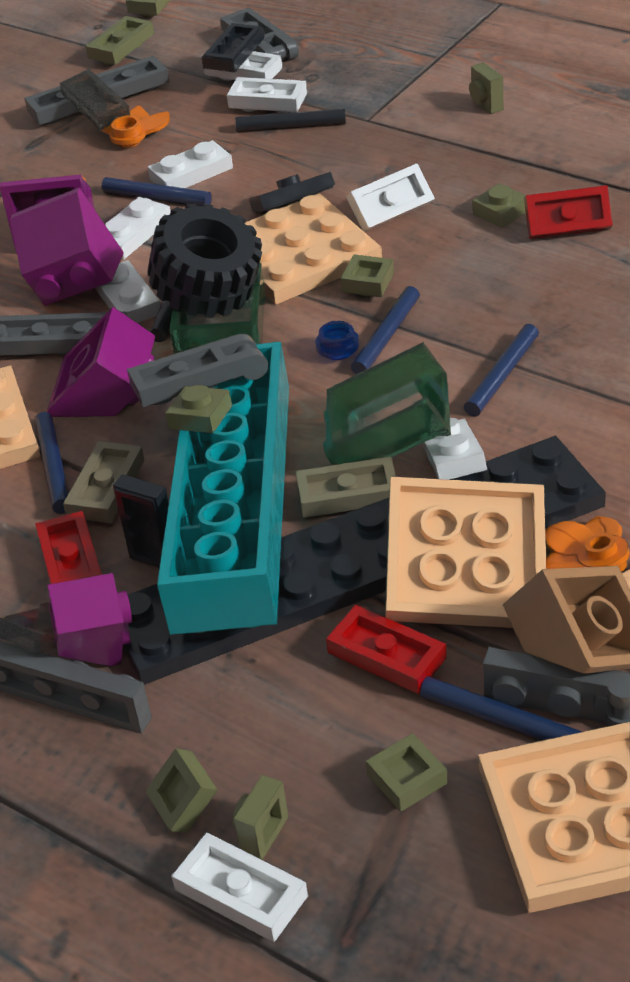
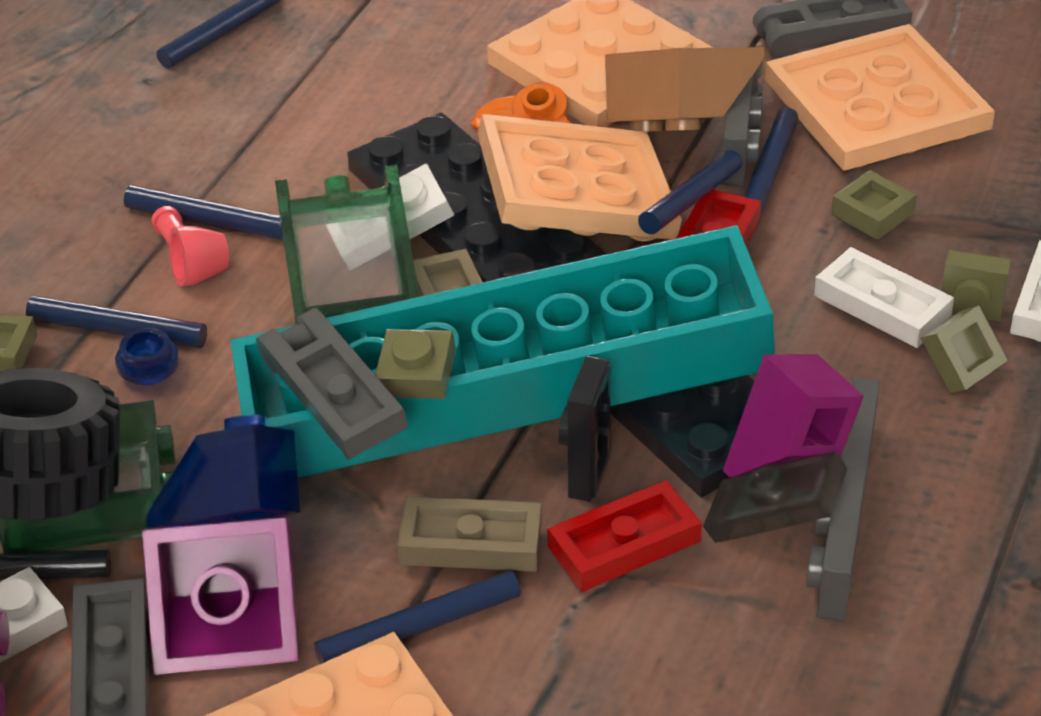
camera: 105 degrees left, 0 degrees up
(148, 344) = (231, 476): none -> clear blue slope
(274, 749) = (883, 296): none -> white plate
(419, 618) = (689, 192): none -> dark blue bar
(449, 351) = (193, 251): none -> coral bar

